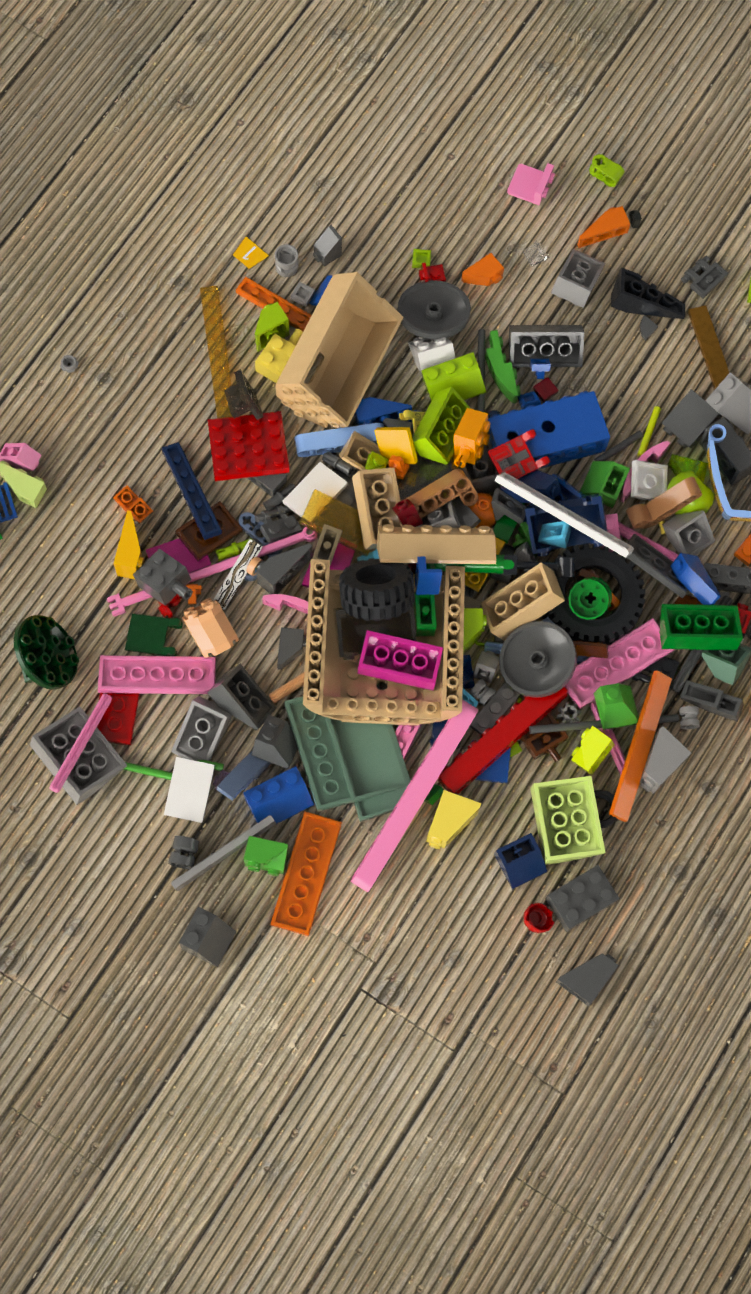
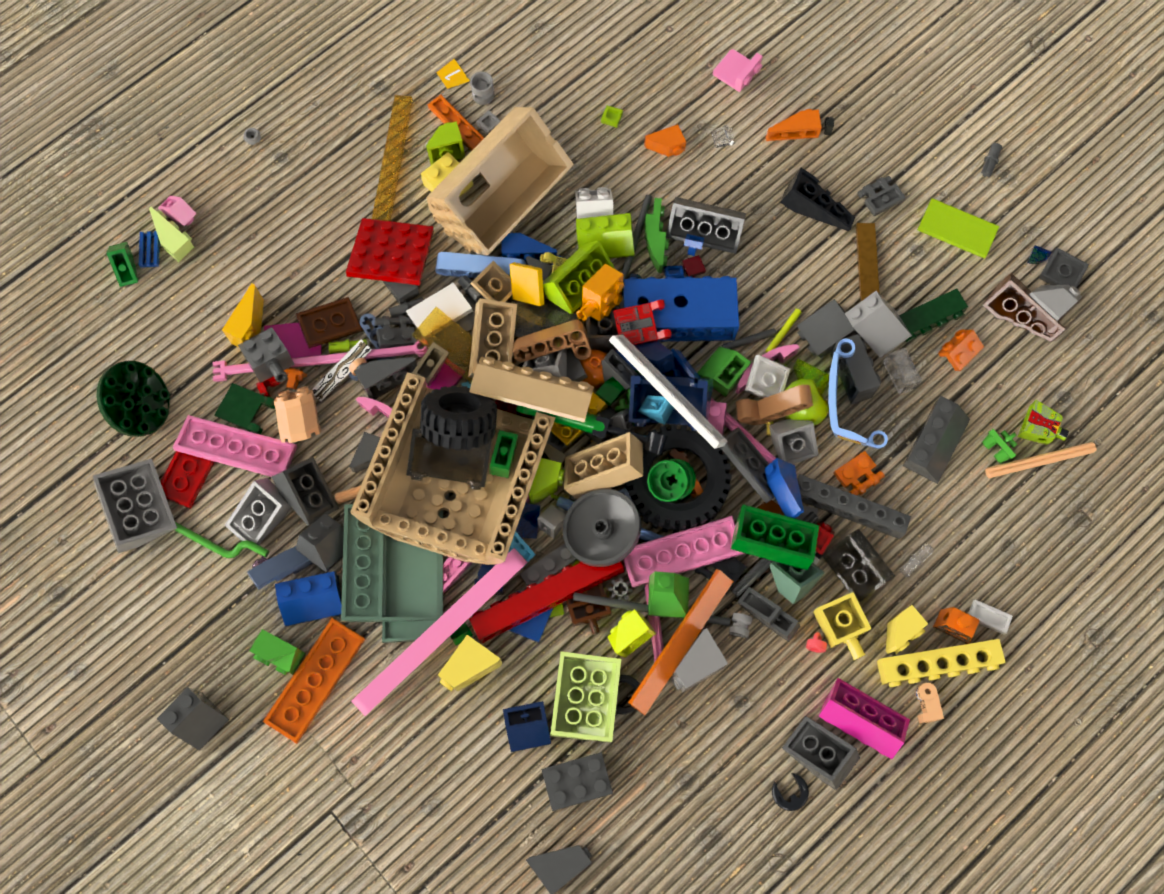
camera: 20 degrees right, 0 degrees up
(80, 743) = (135, 495): bright pink axle -> none
(130, 501) = (267, 280): orange slope -> none
(184, 845) = (204, 620): dark grey wheel -> none
(189, 789) = (227, 567): white tile -> none
(191, 491) = (324, 281): dark blue tile -> none
(222, 853) = (237, 638): light grey tile -> none
(242, 397) = (399, 204): clear smoke bracket -> none
(328, 246) = (524, 84): dark grey slope -> none
(376, 461) = (504, 294): lime plate -> none
(400, 467) = (524, 307): orange brick -> none
(400, 660) = (463, 493): dark pink slope -> none
(407, 513) = (515, 352): dark red bracket -> none
(426, 580) = (511, 421): blue panel -> none
(431, 273) = (616, 133): red bracket -> none
(434, 309) = (607, 165): dark grey dish -> none
(487, 693) = (541, 545): light grey wheel -> none
(538, 918) = (527, 789): red hair -> none
(577, 278) = (756, 168): light grey slope -> none
(591, 649) = (656, 530): reddish brown bracket -> none
(607, 172) = (813, 75): lime piece -> none
(647, 327) = (810, 231): dark grey tile -> none

